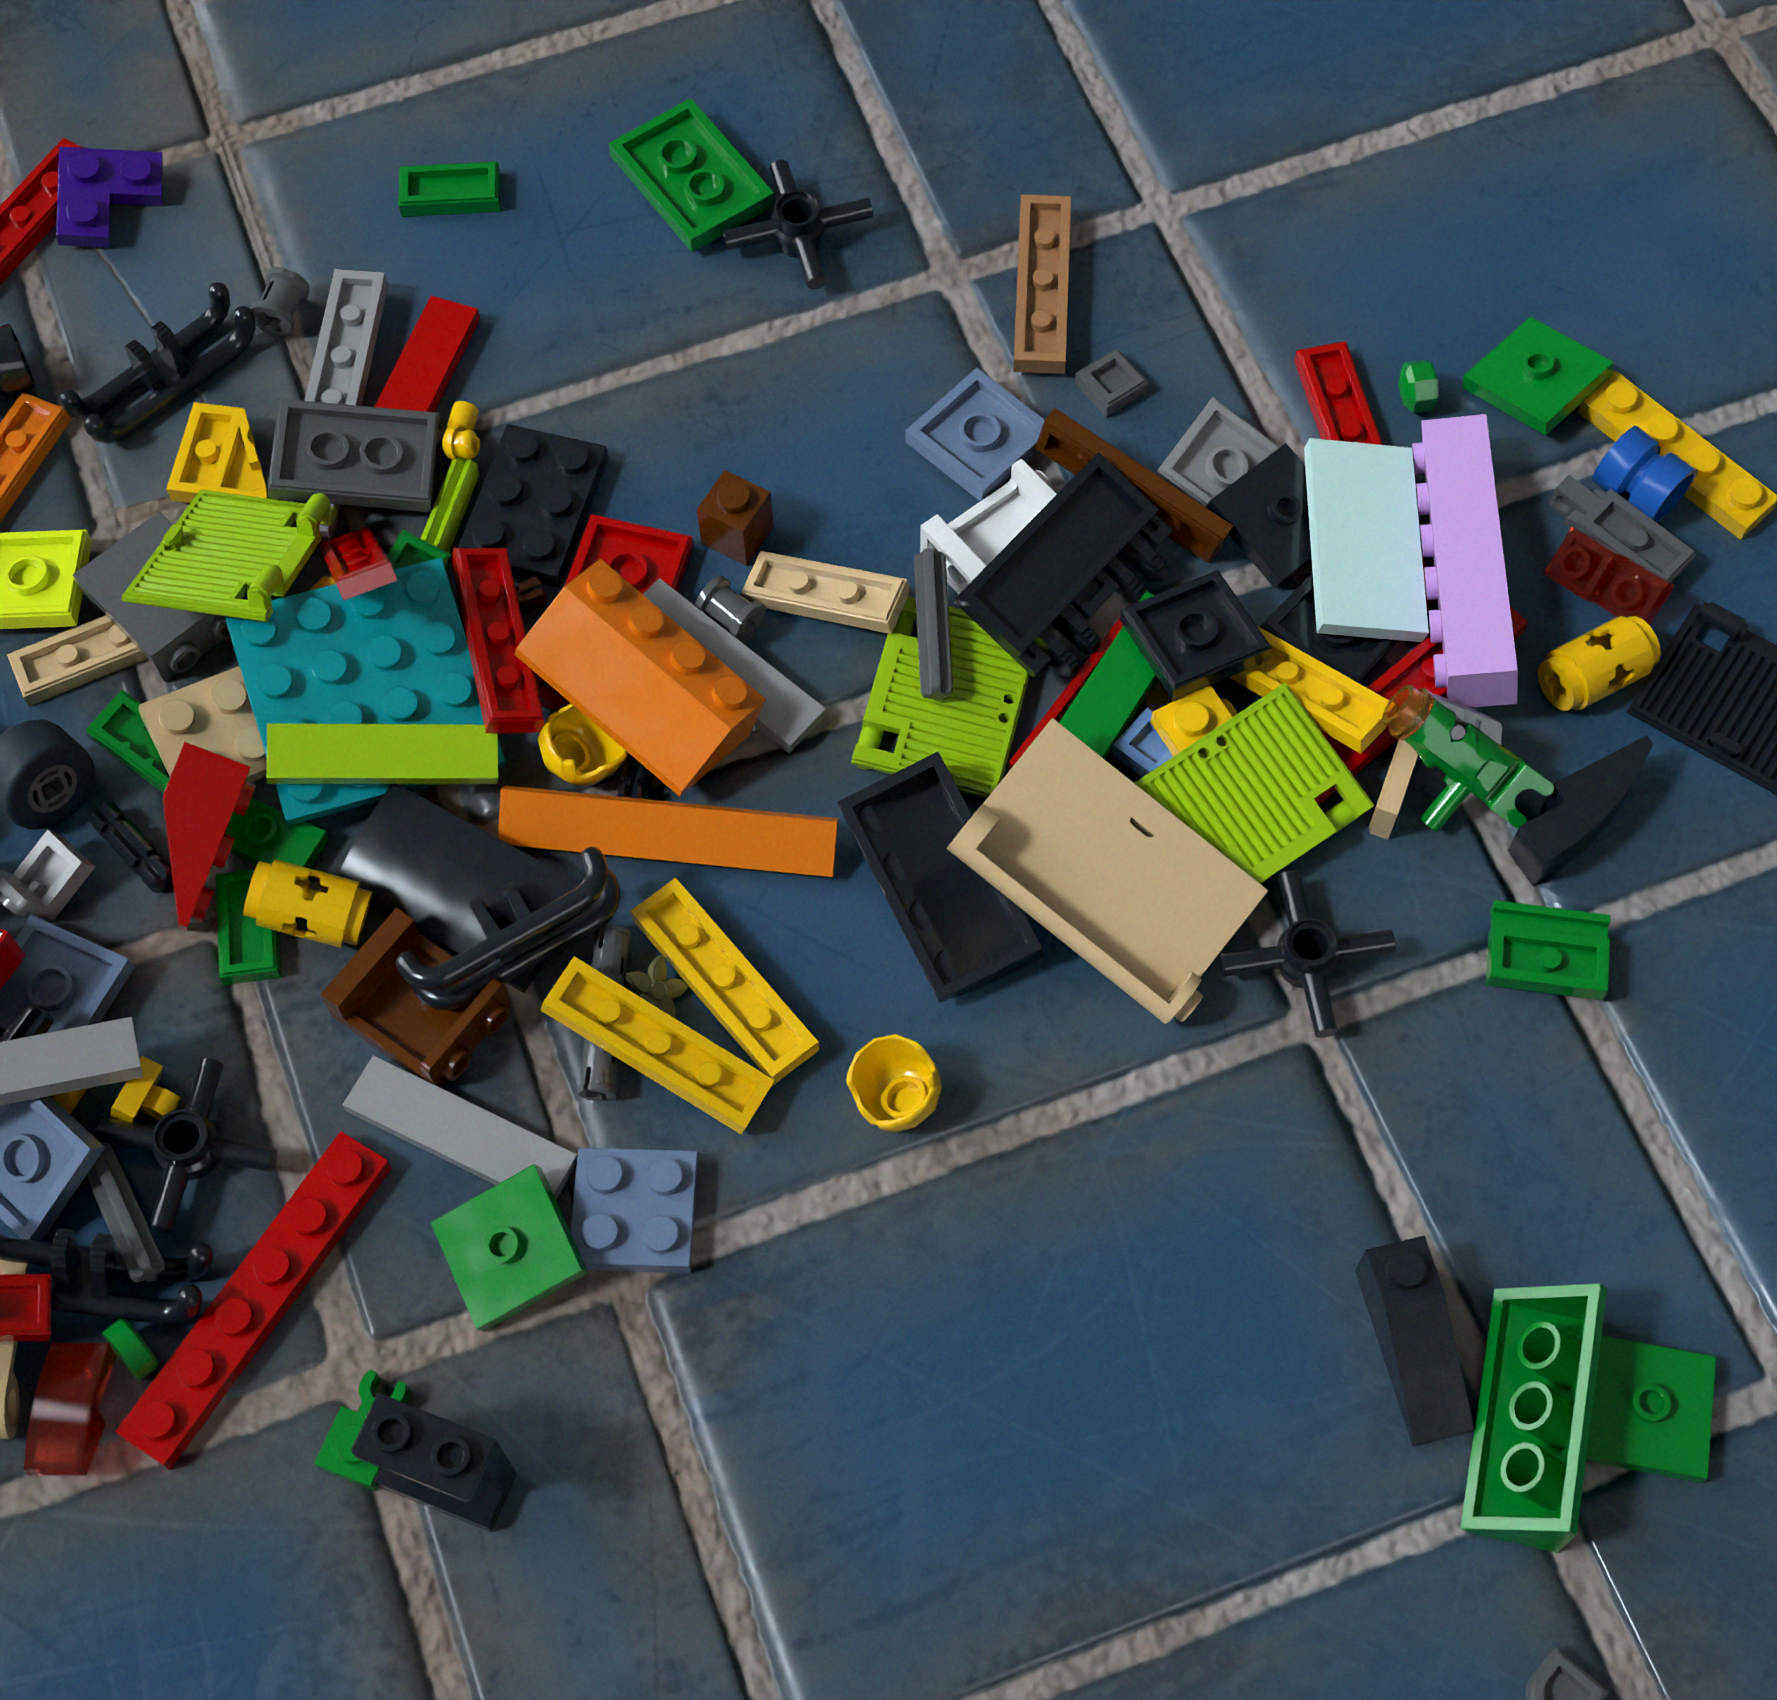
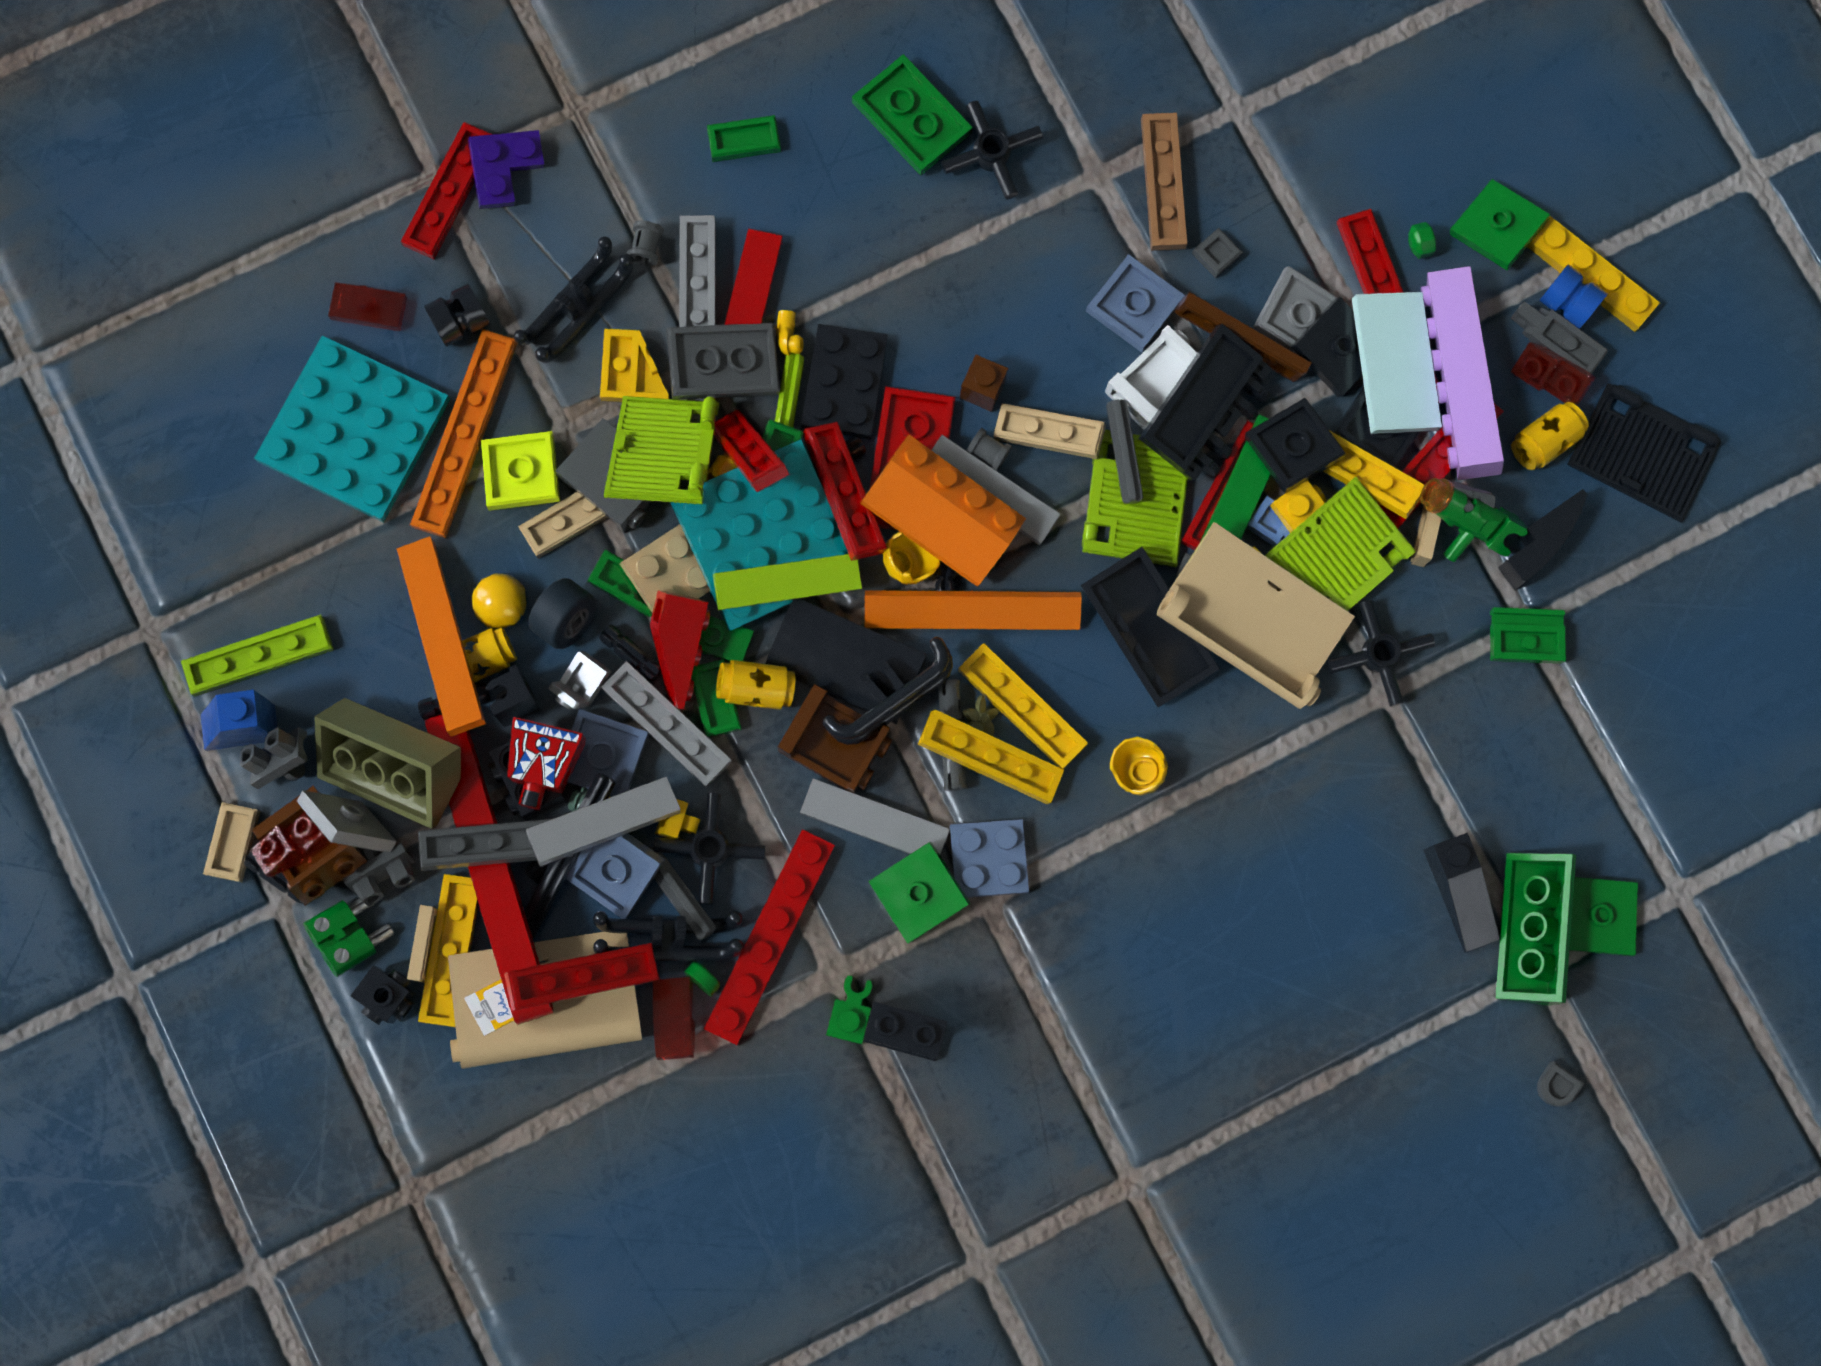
camera: 15 degrees left, 15 degrees up
(163, 954) = (666, 724): none -> light grey plate

